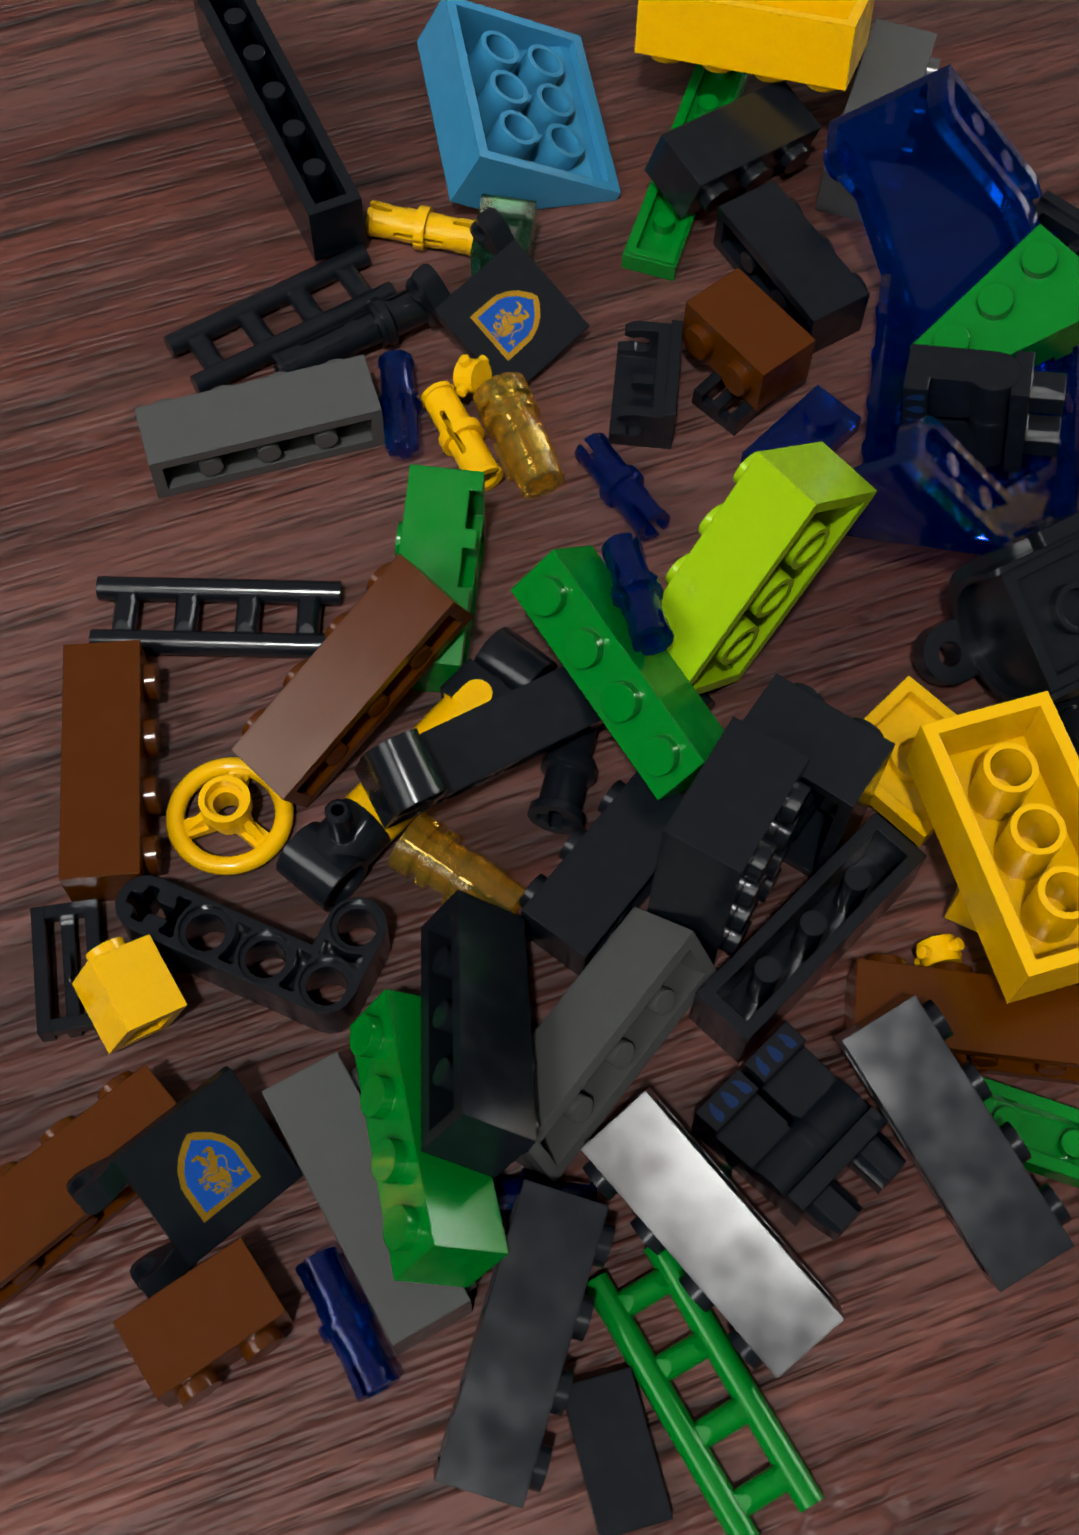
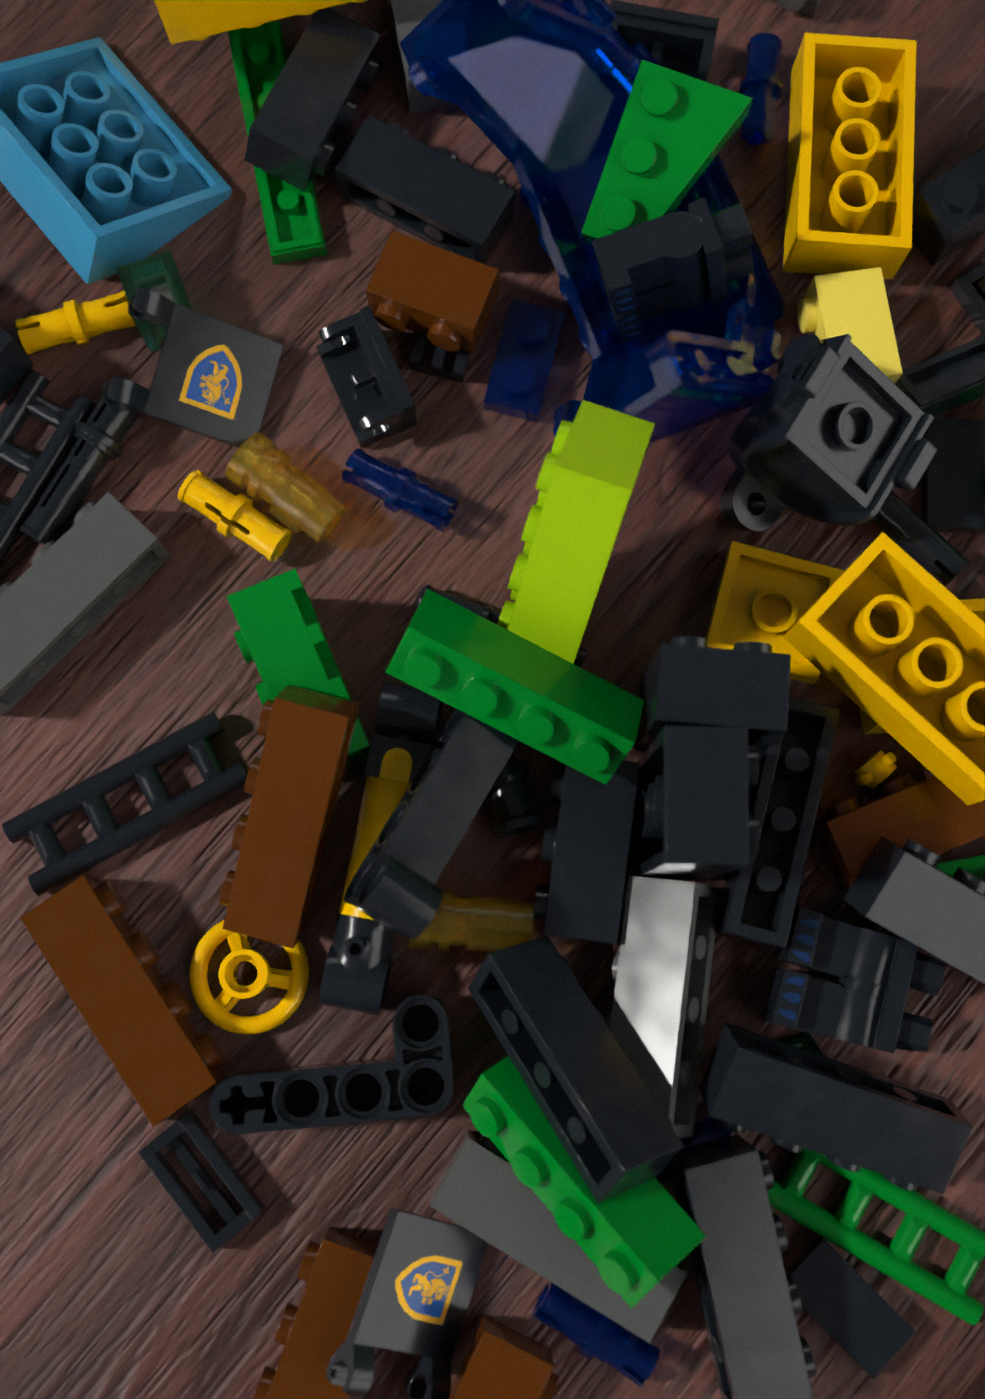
camera: 30 degrees left, 15 degrees up
(128, 991) = (268, 1182): yellow brick -> none
(399, 403) = (162, 514): clear blue axle -> none
(470, 374) = (211, 453): yellow piece -> none
(637, 594) = (495, 619): clear blue pin -> none

